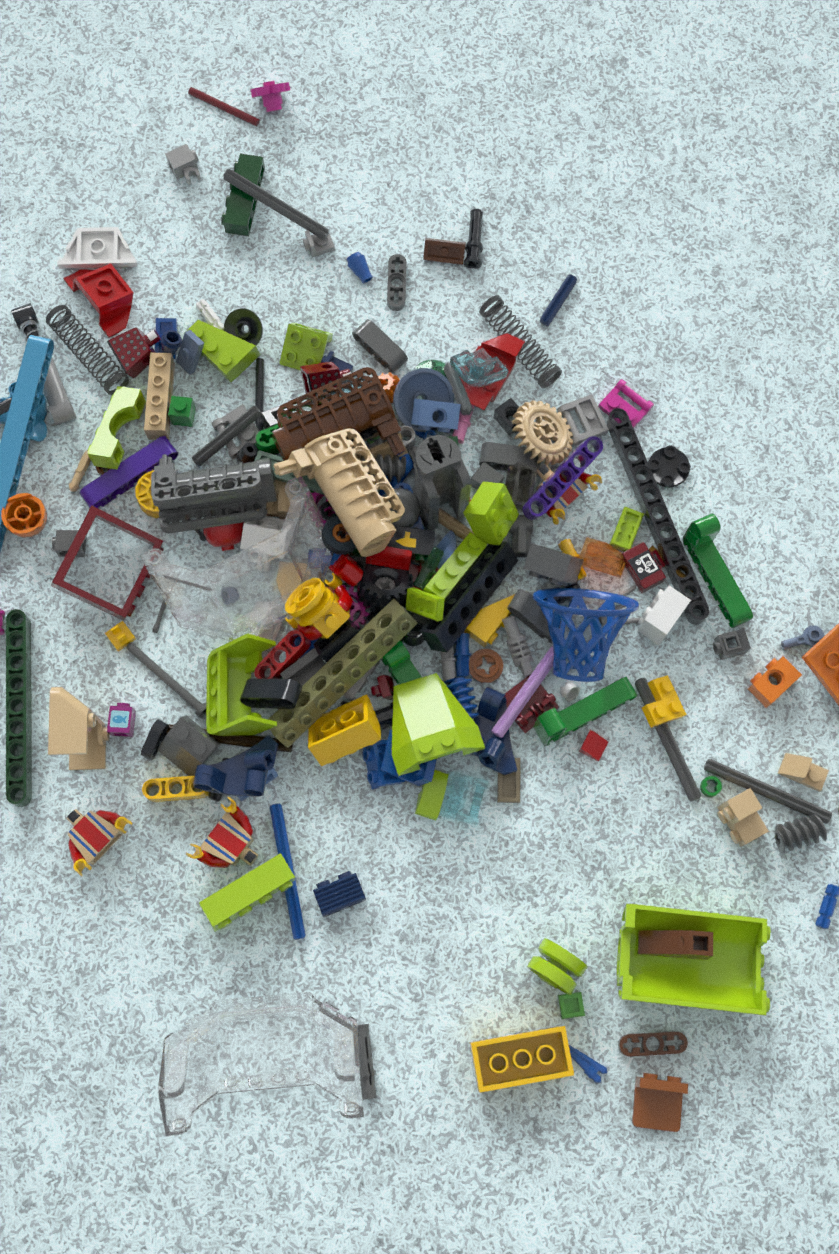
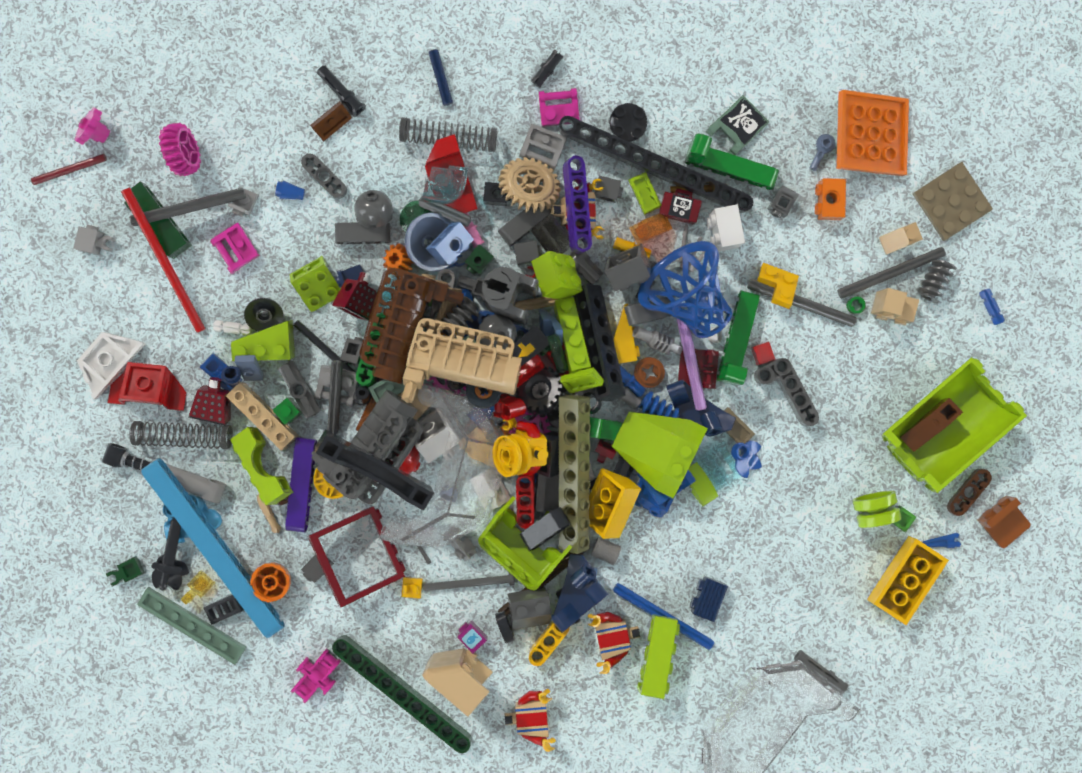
camera: 40 degrees left, 15 degrees up
(192, 646) = (464, 549): none -> light grey hinge
(193, 480) = (349, 455): none -> black arch
(204, 416) = (294, 378): none -> dark grey piece
(216, 221) = (163, 259): none -> red piece
(282, 268) = (239, 244): none -> dark pink plate
(299, 766) = (606, 551): none -> light grey piece
(315, 162) = (179, 149): none -> dark pink gear
(407, 334) = (373, 209): none -> dark grey cylinder
(493, 815) = (748, 457): none -> blue plate
(583, 798) = (790, 394): none -> dark grey beam
(602, 499) = (611, 189): none -> dark grey brick
(645, 369) = (547, 68): none -> black pin
(756, 554) = (739, 123): none -> flag

